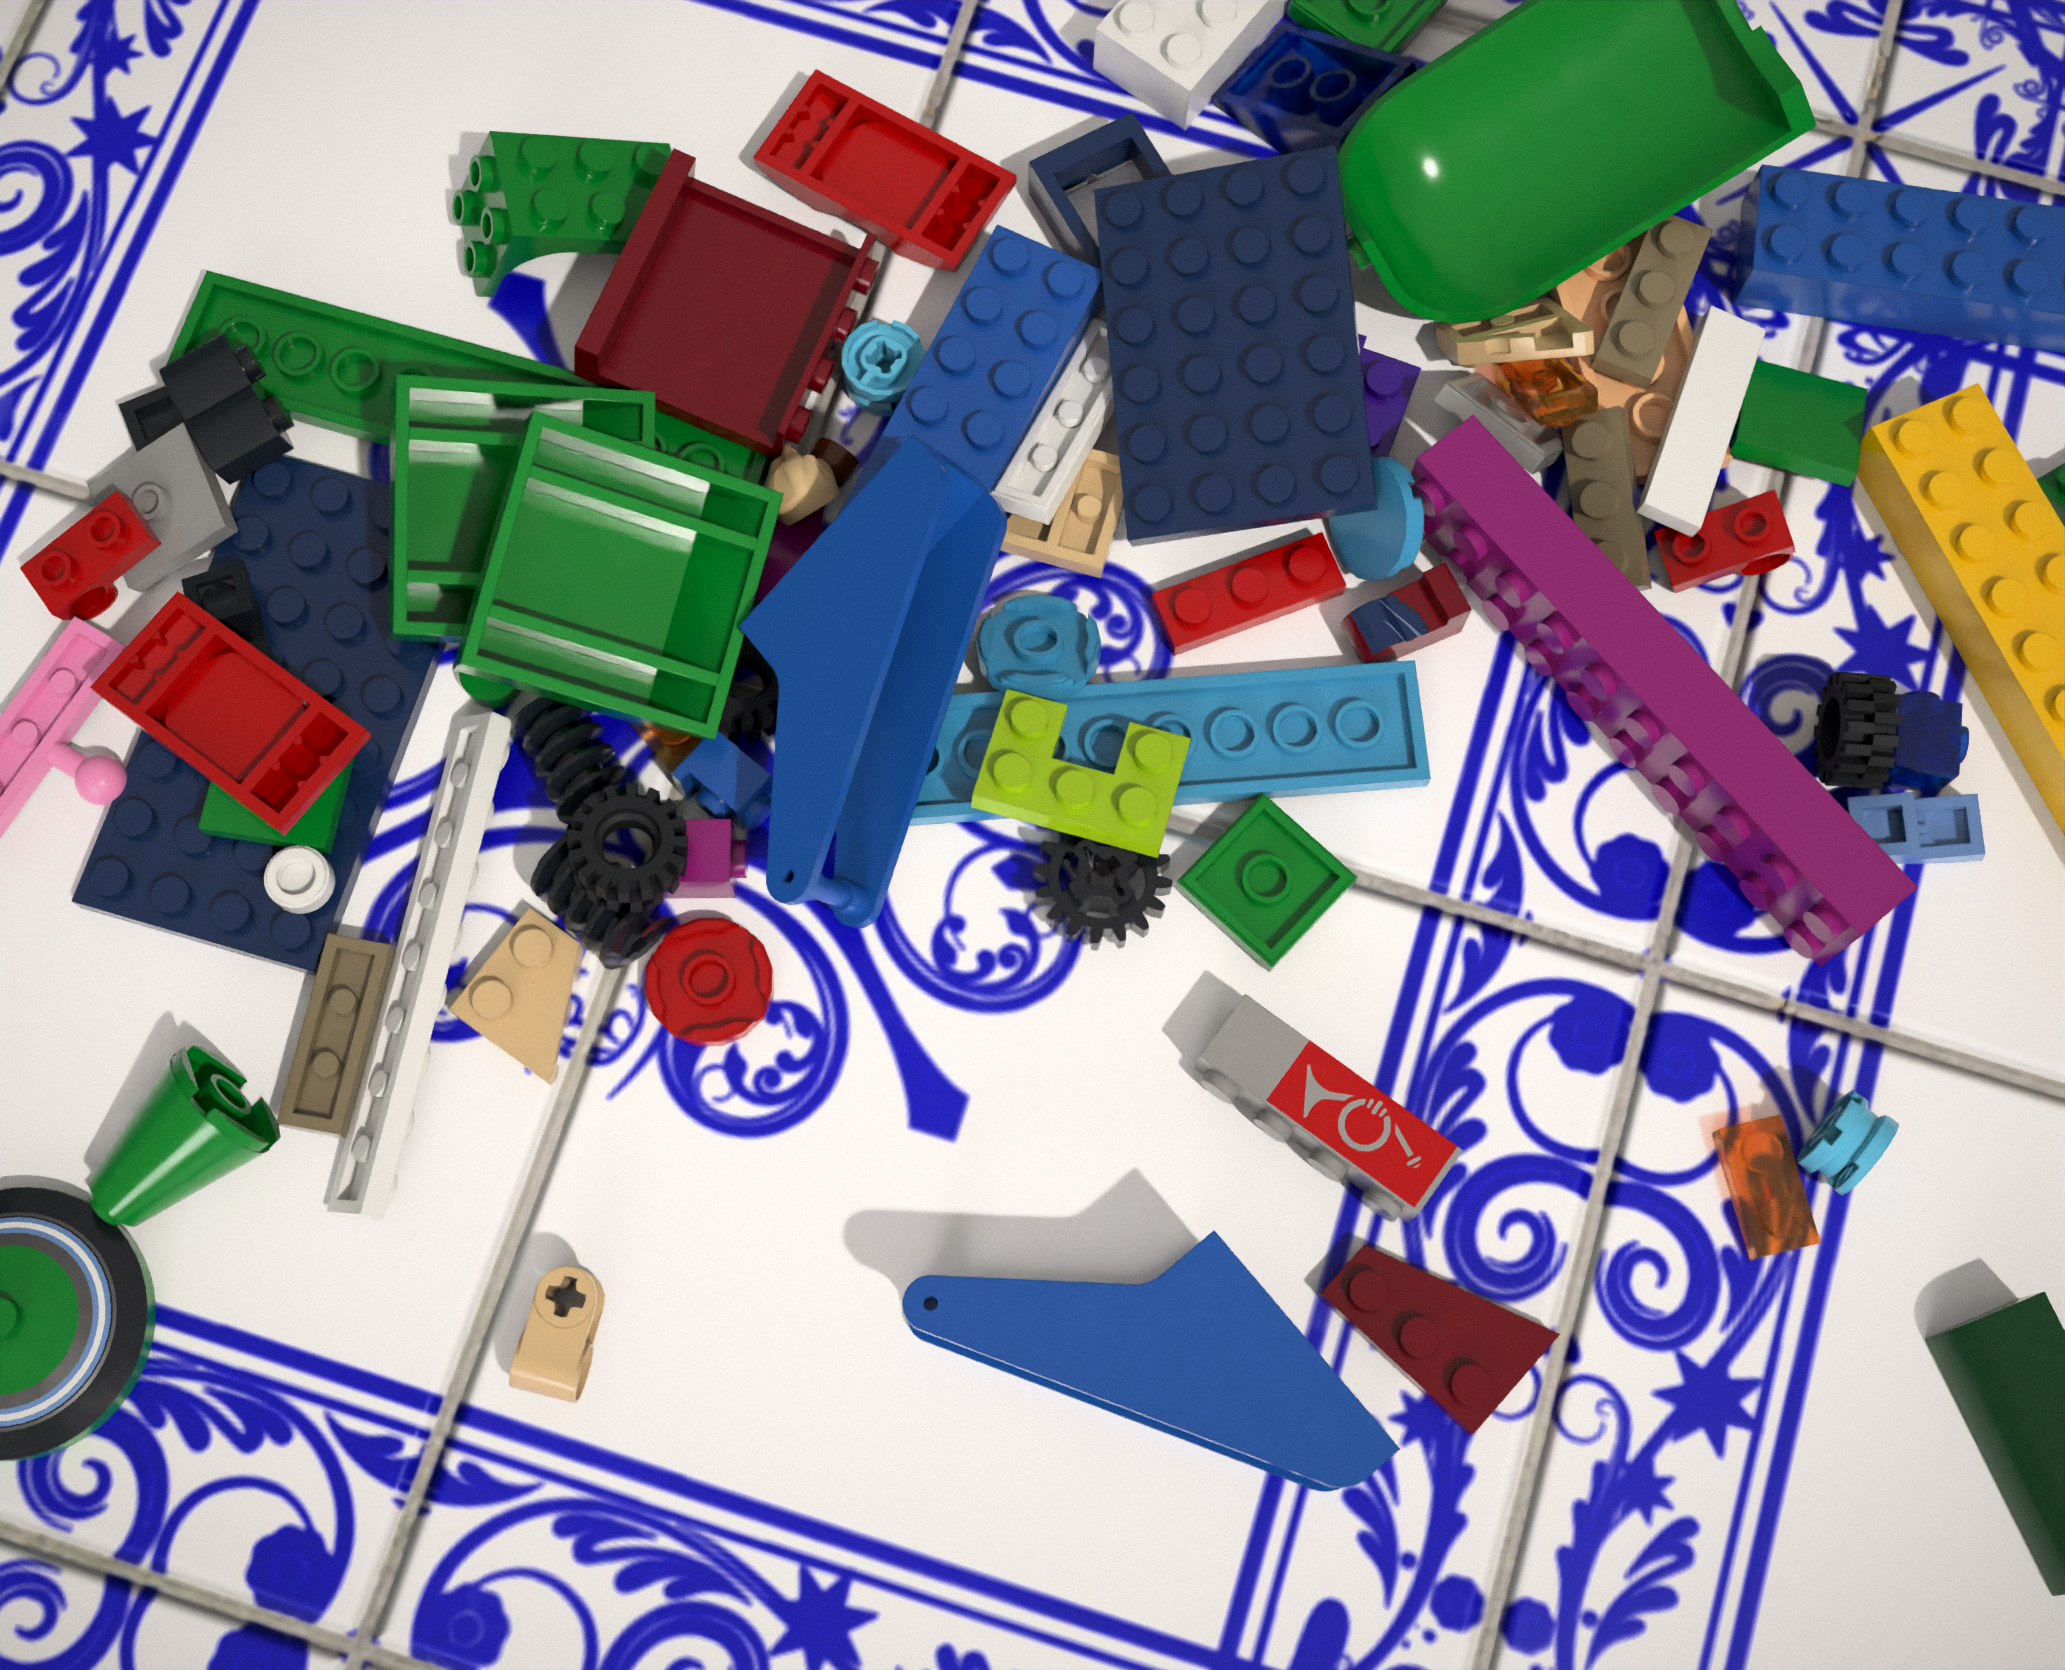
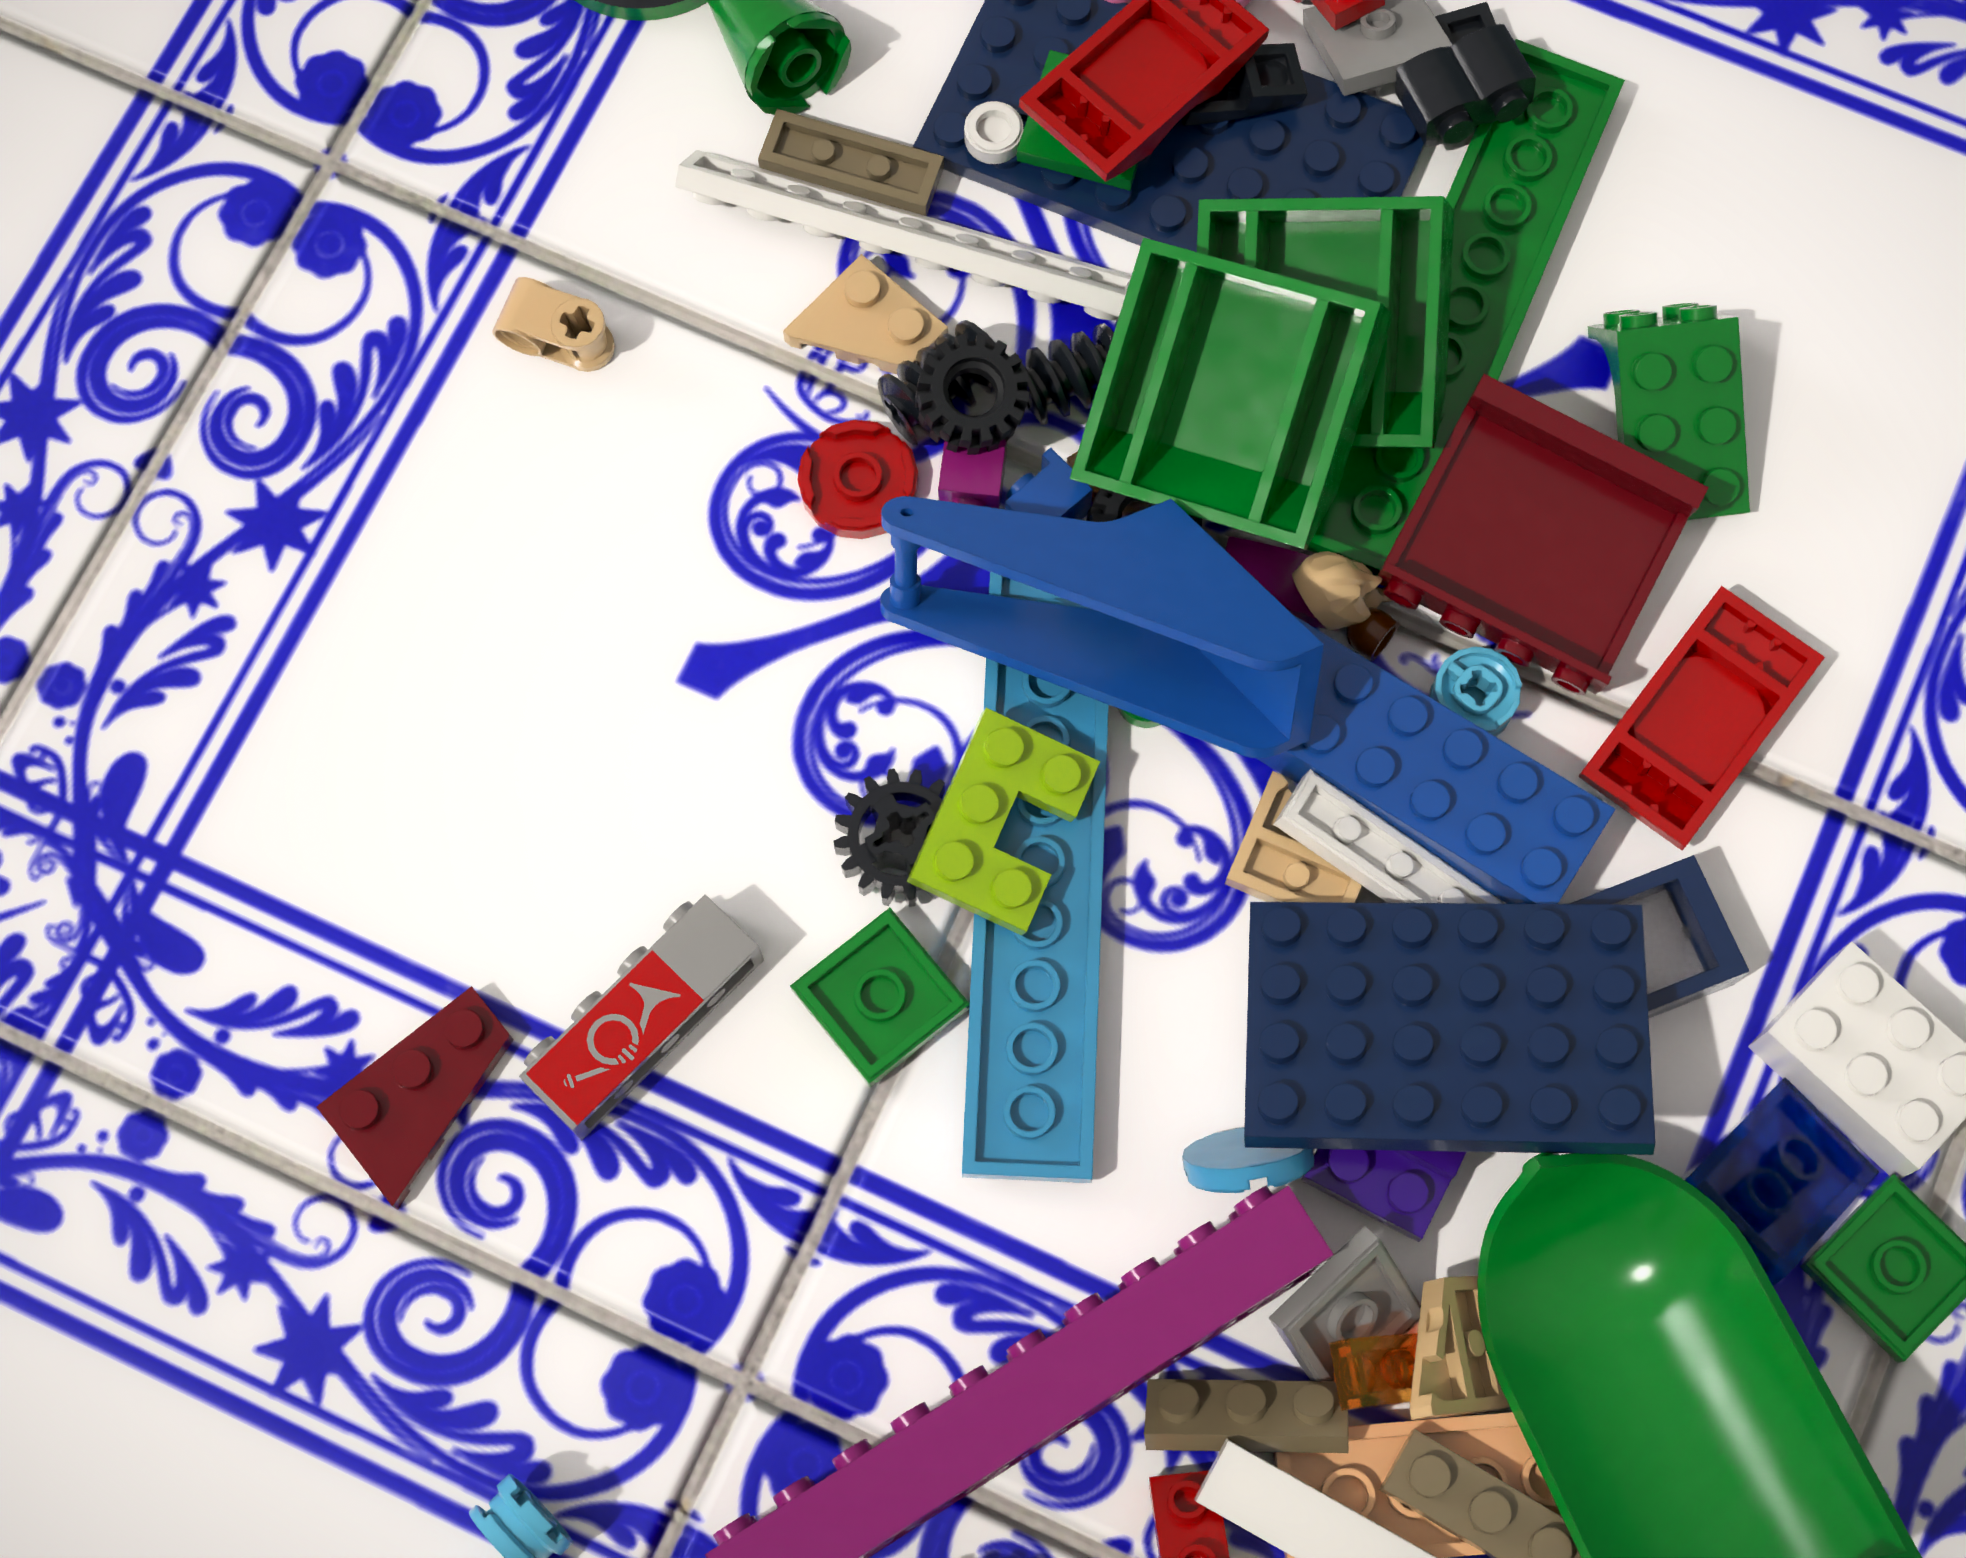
camera: 100 degrees right, 0 degrees up
(1039, 647) = (1149, 807): dark azure tile -> none
(1182, 1354) = (425, 835): blue piece -> none
(1248, 593) = (1192, 1029): red plate -> none
(1408, 618) = (1141, 1180): dark red leg -> none
(1765, 1187) = (499, 1444): clear orange plate -> none

